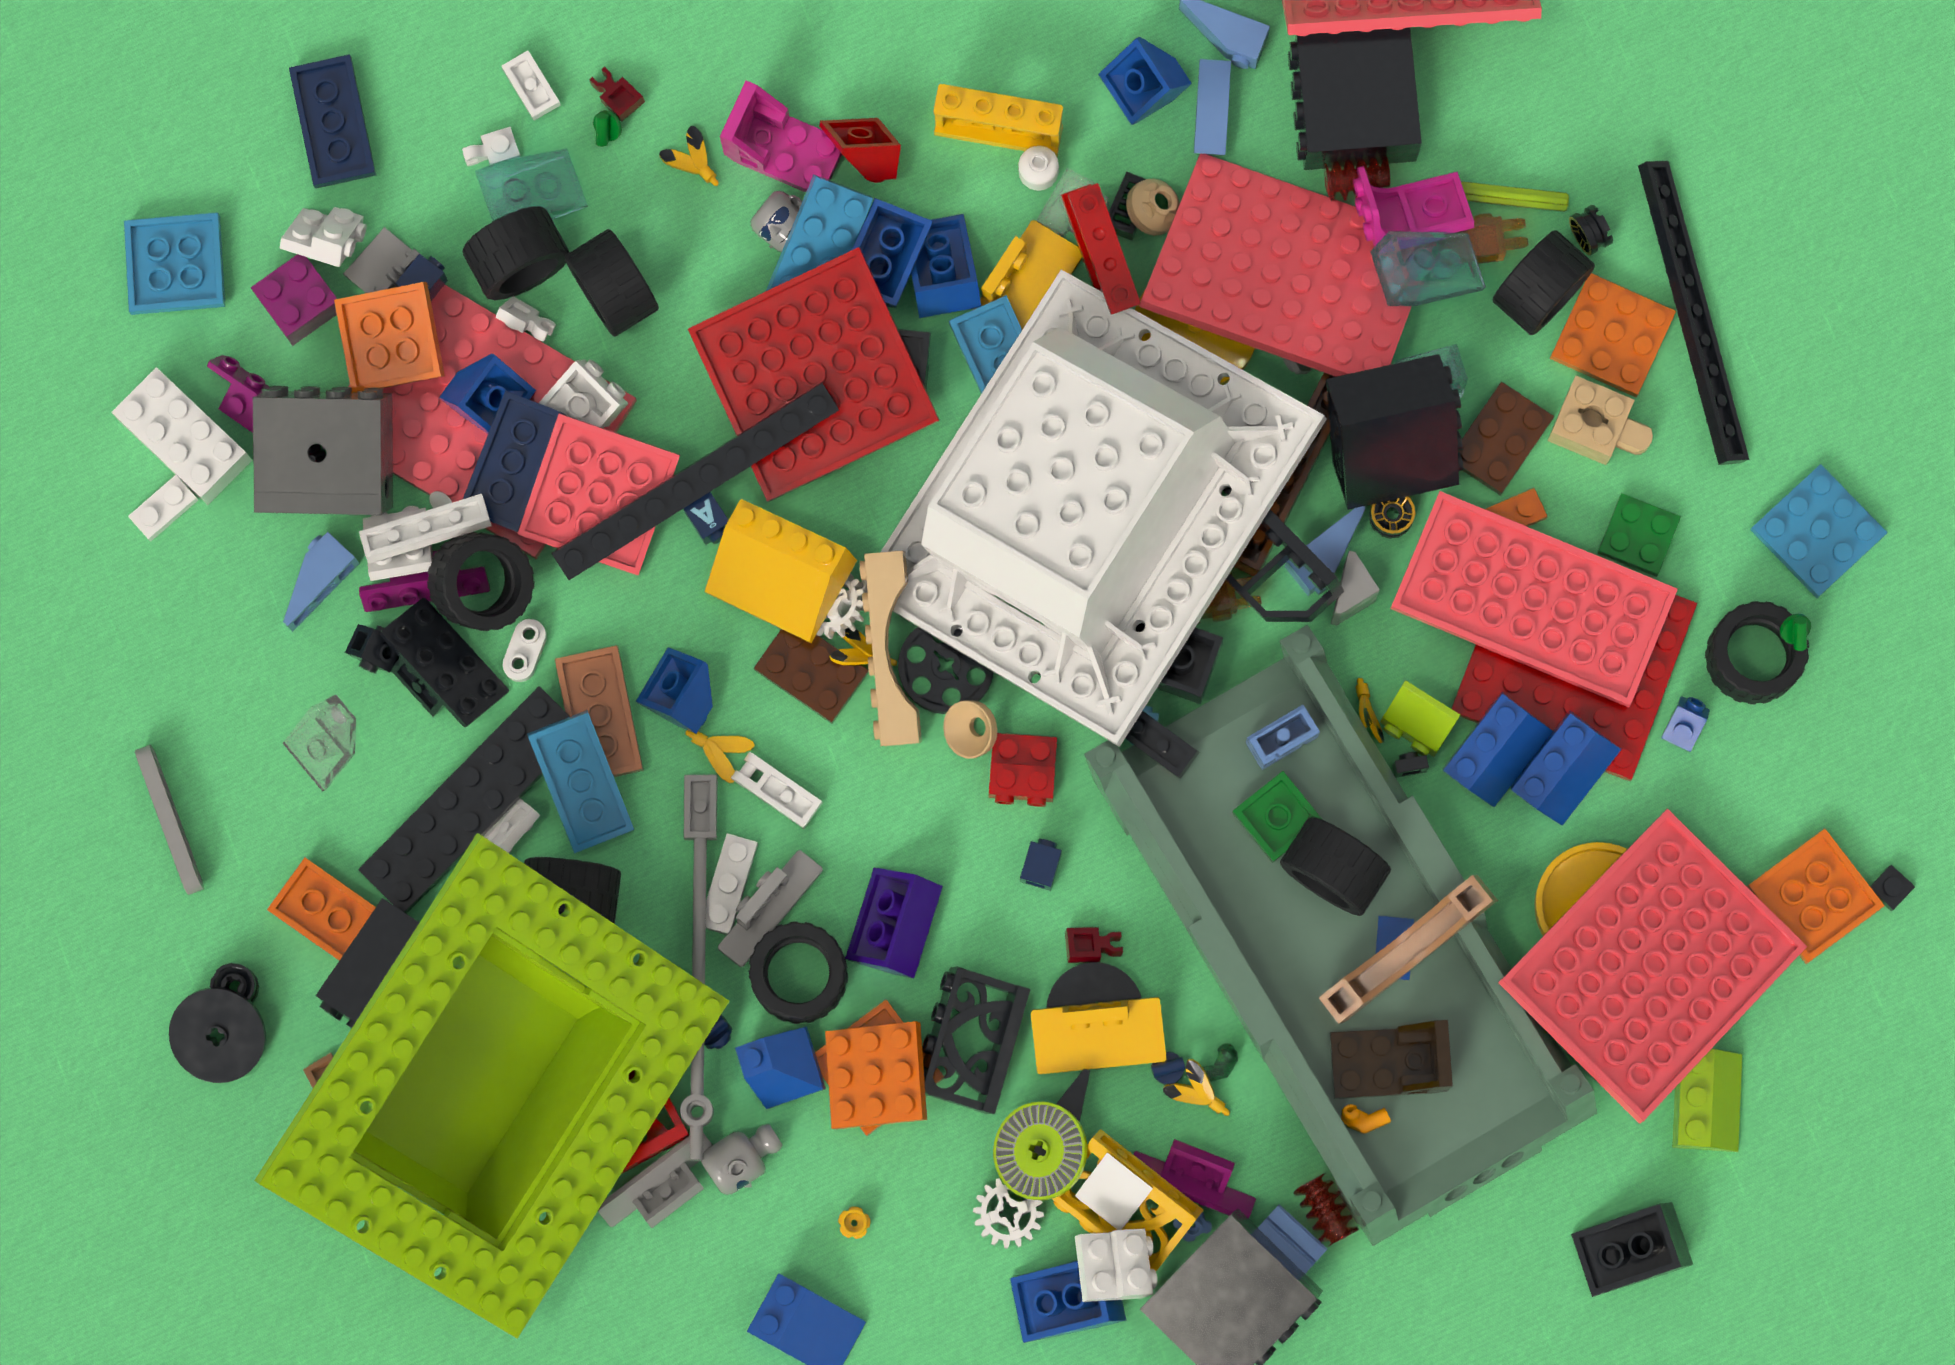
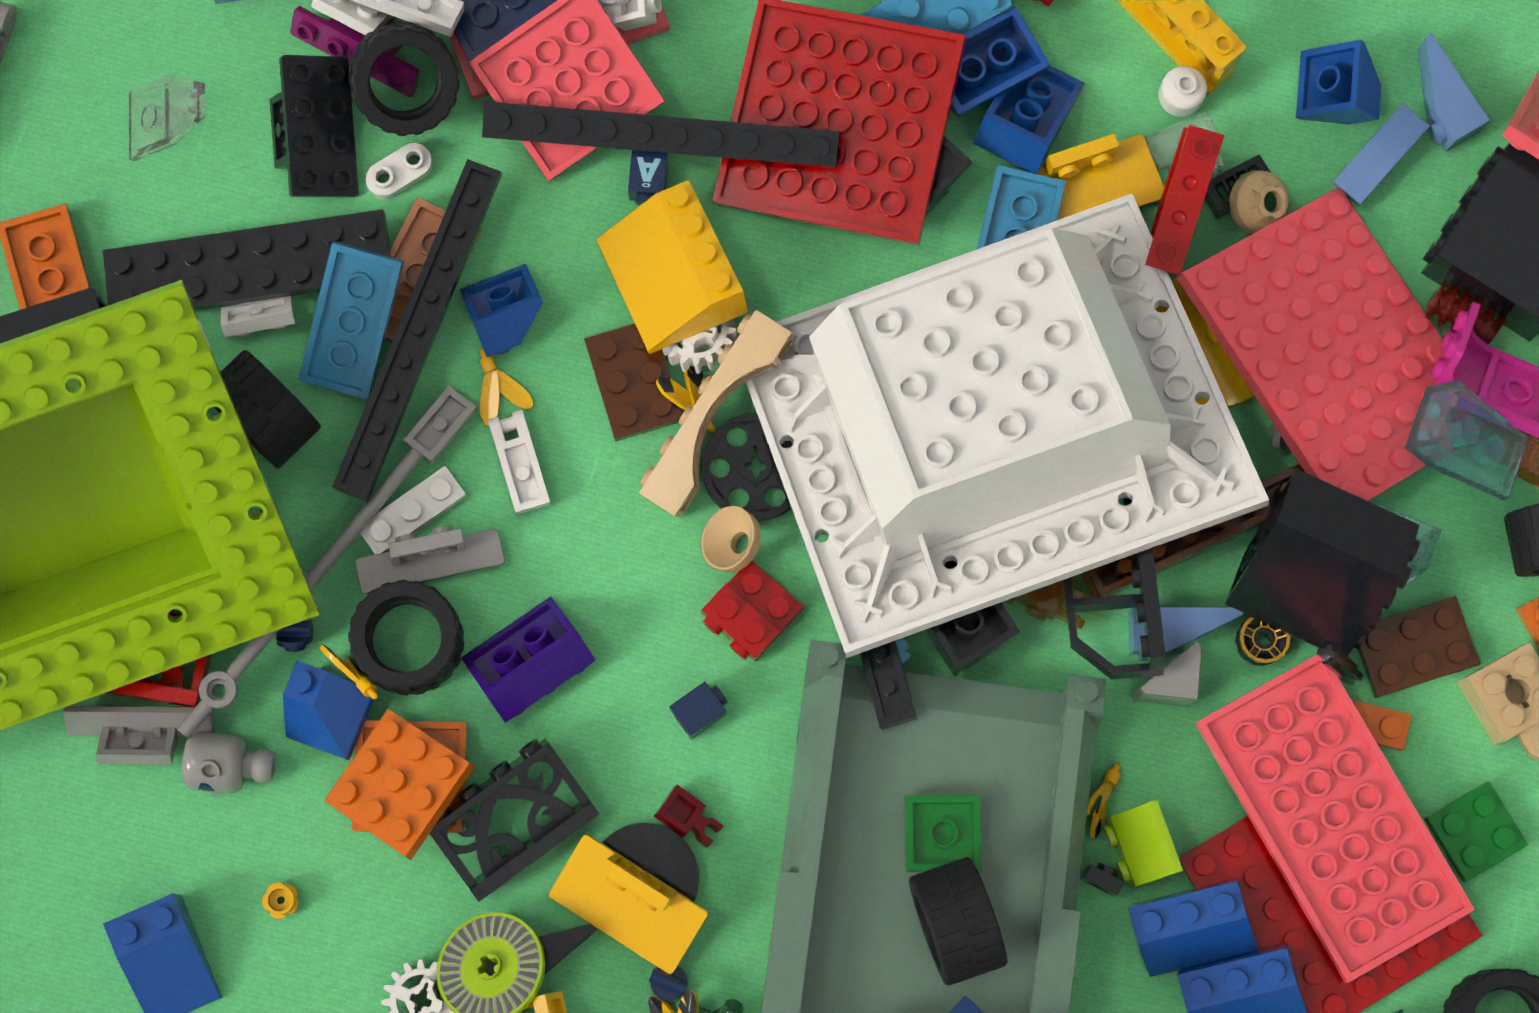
camera: 30 degrees right, 0 degrees up
(371, 649) = (264, 67): black brick -> none
(633, 752) = (417, 331): none -> black plate
(795, 1026) = (350, 668): none -> yellow piece
(1282, 737) = (1003, 764): medium blue brick -> none
(1458, 490) = (1339, 663): none -> black axle

